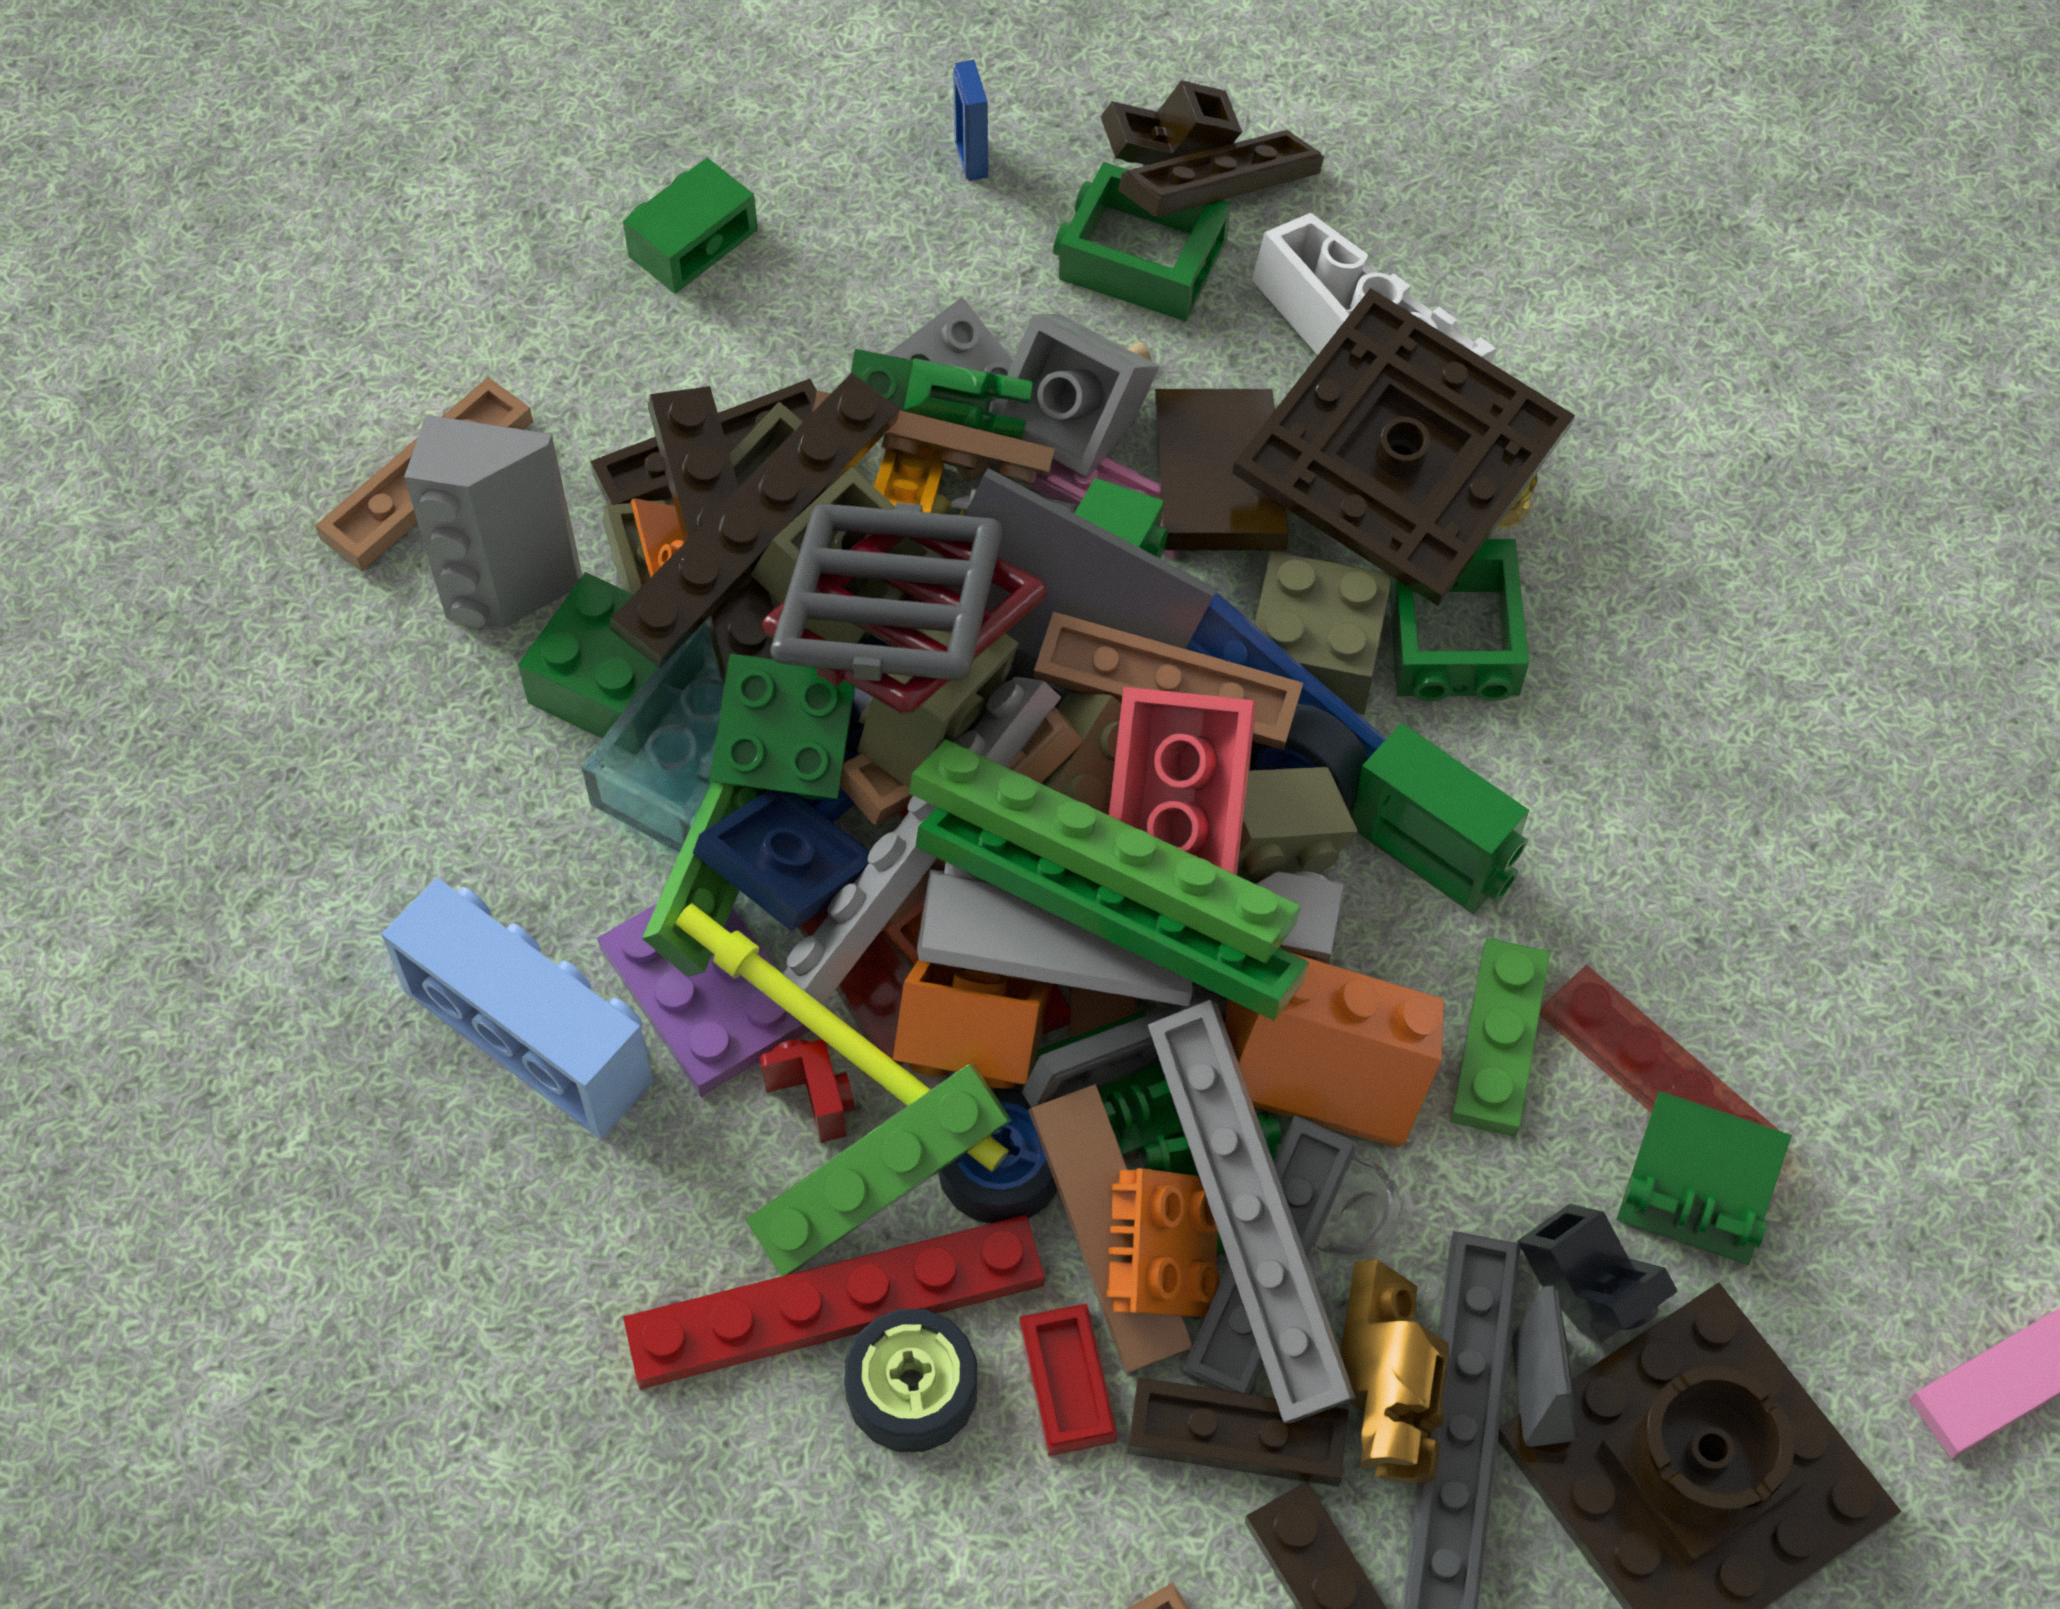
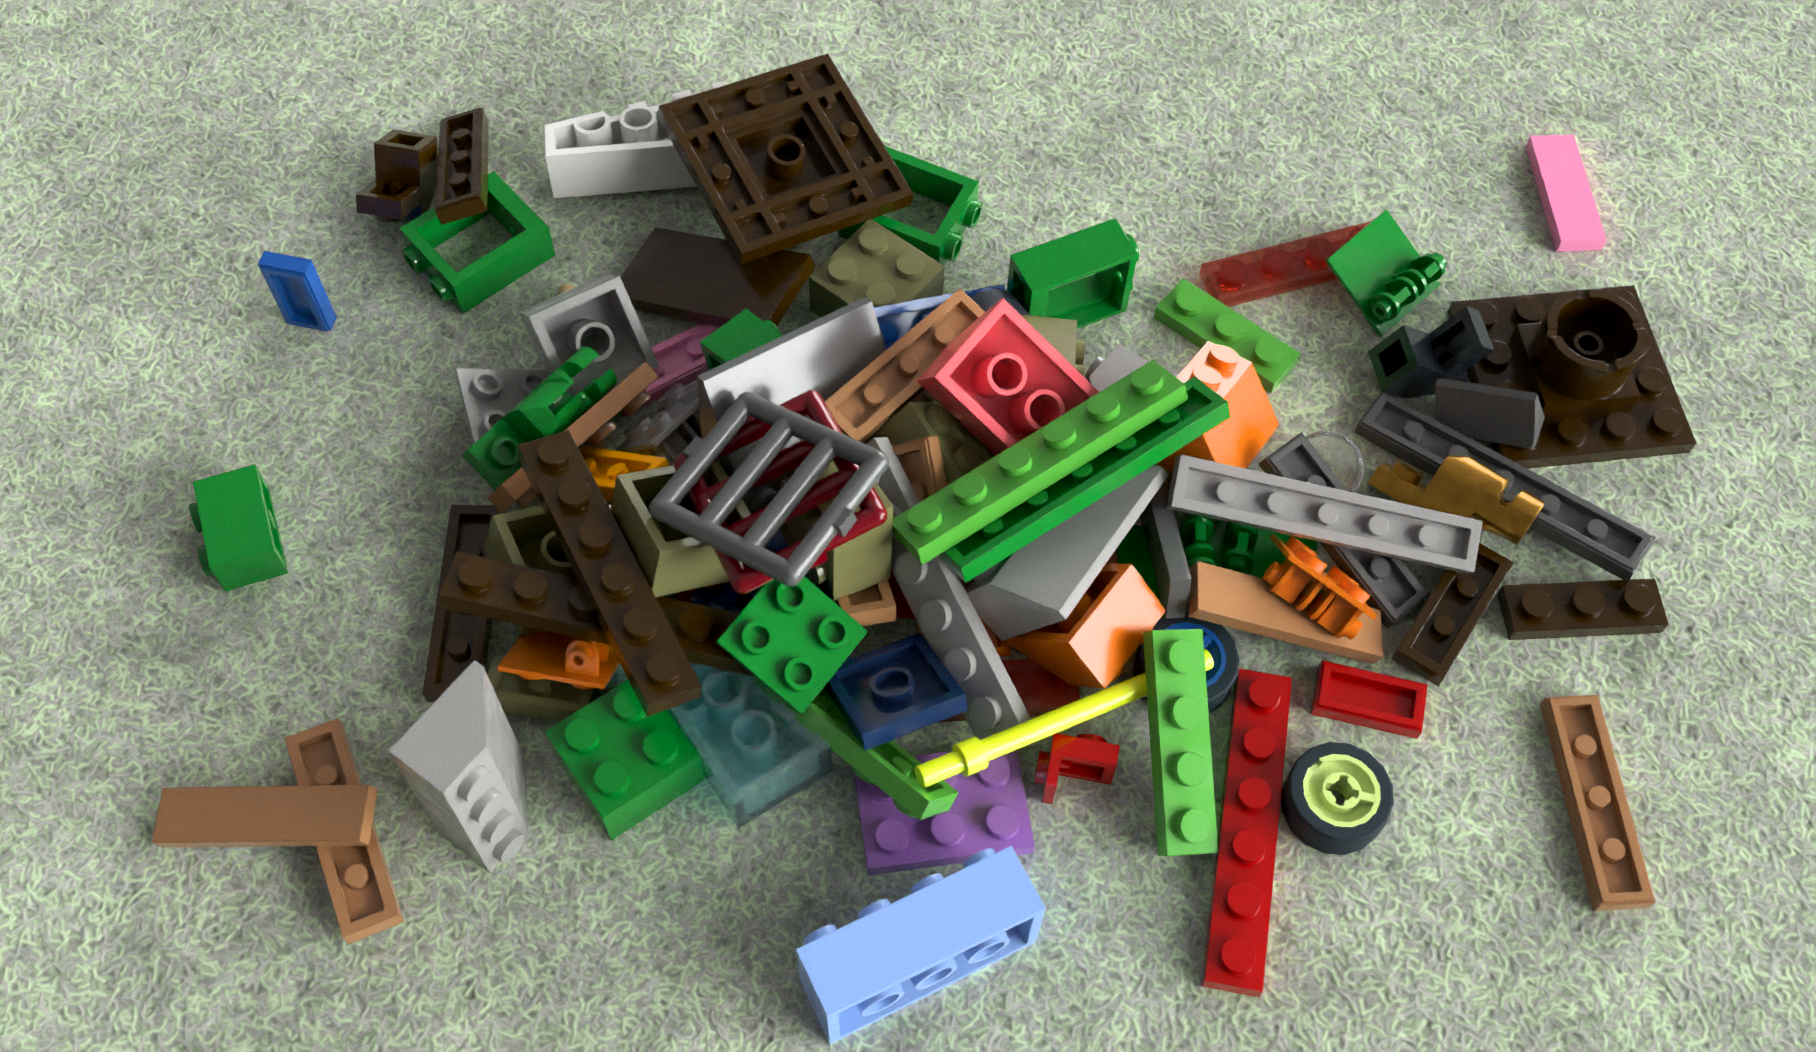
camera: 65 degrees left, 0 degrees up
(392, 386) = (265, 816): none -> medium nougat tile

